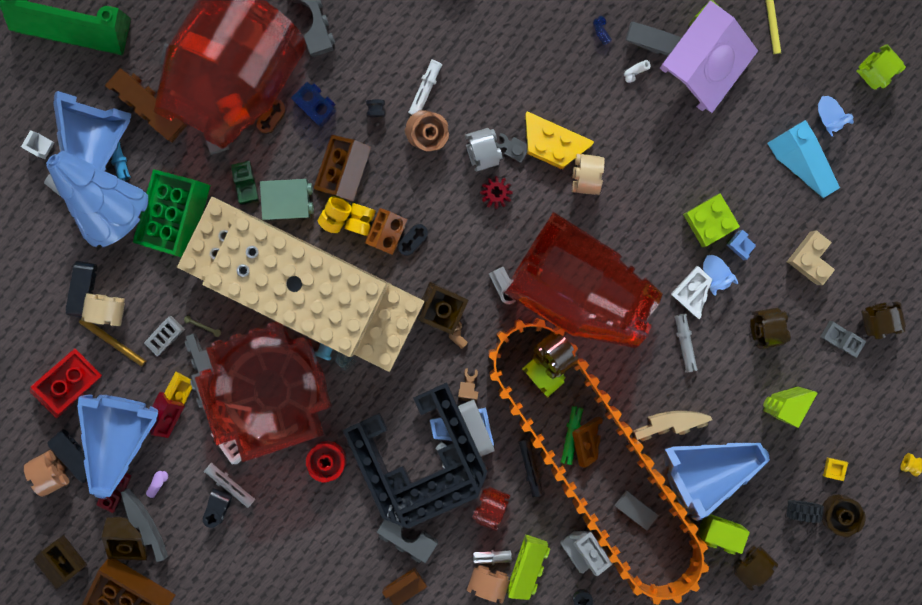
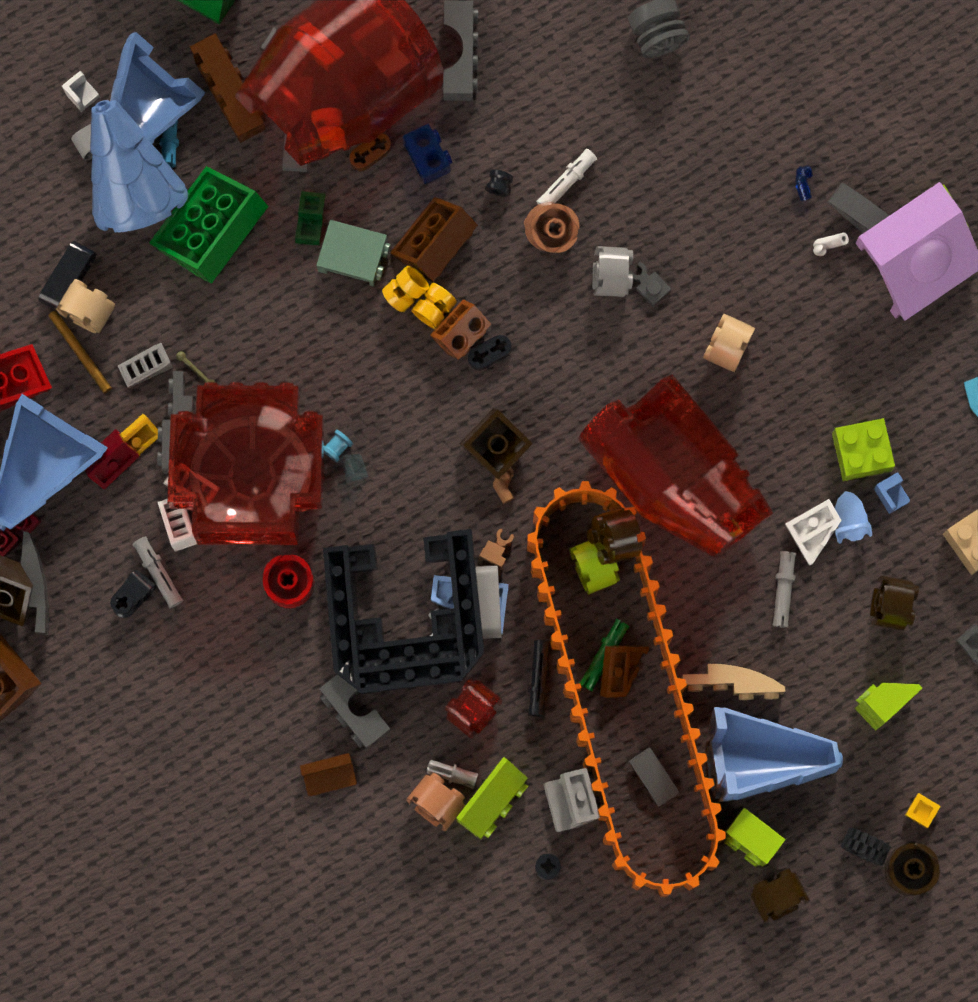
camera: 15 degrees right, 10 degrees down
(158, 479) = (74, 534): lavender arm -> none
(300, 285) = (339, 351): tan piece -> none
(491, 197) = (620, 327): dark red gear -> none
(500, 280) = (575, 429): light grey piece -> none
(552, 142) = (700, 293): yellow wing -> none

